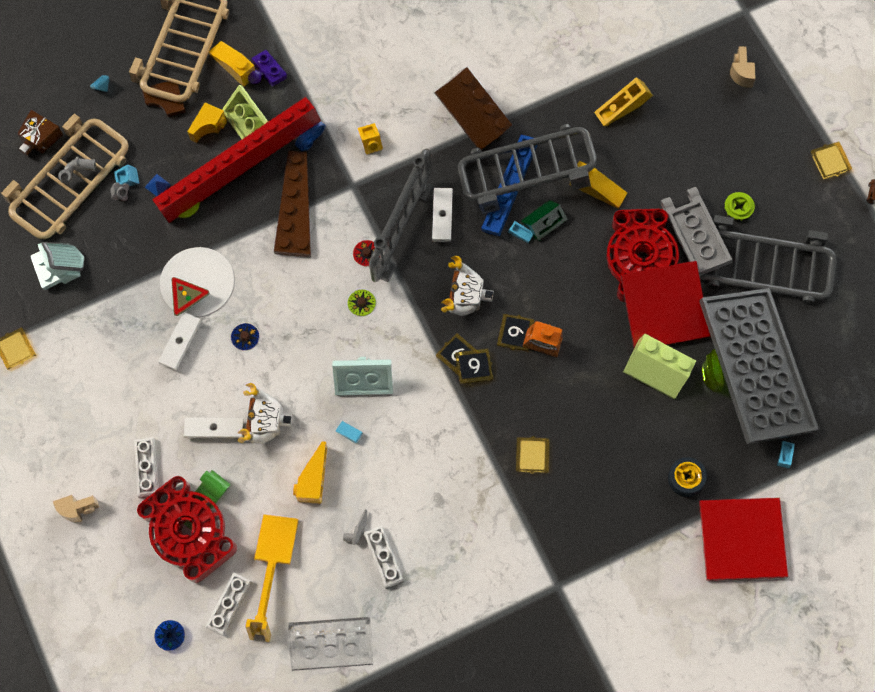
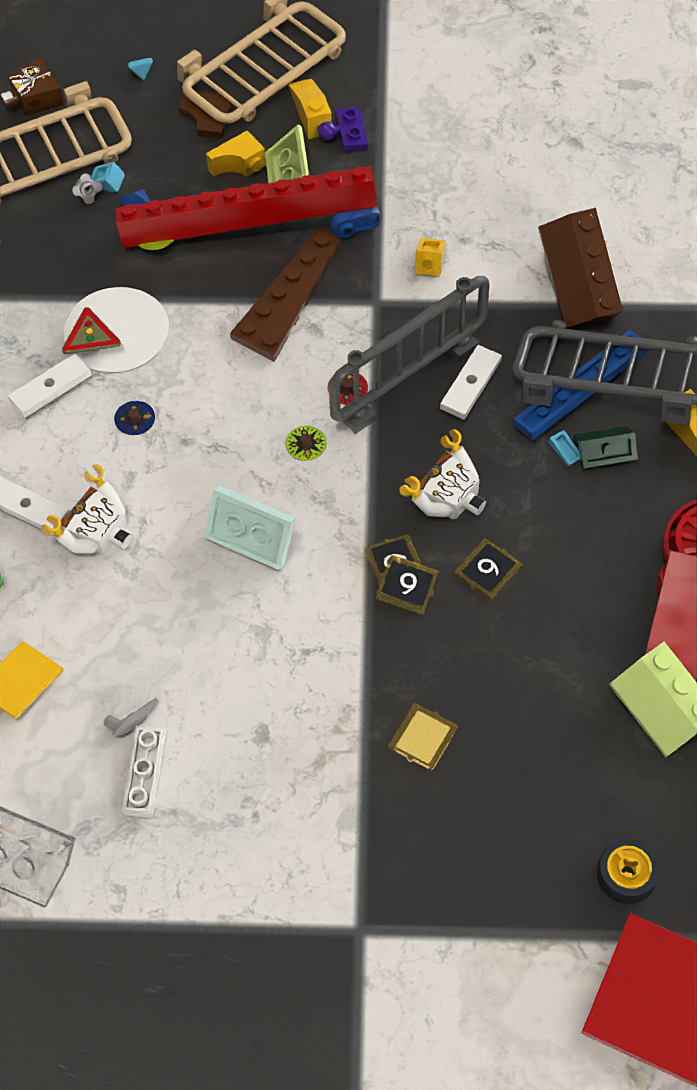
camera: 25 degrees right, 10 degrees down
(77, 164) = (52, 136): light grey piece -> none
(311, 480) = (111, 623): yellow slope -> none
(349, 432) = (194, 592): medium azure piece -> none
(543, 338) = (522, 591): orange torso -> none

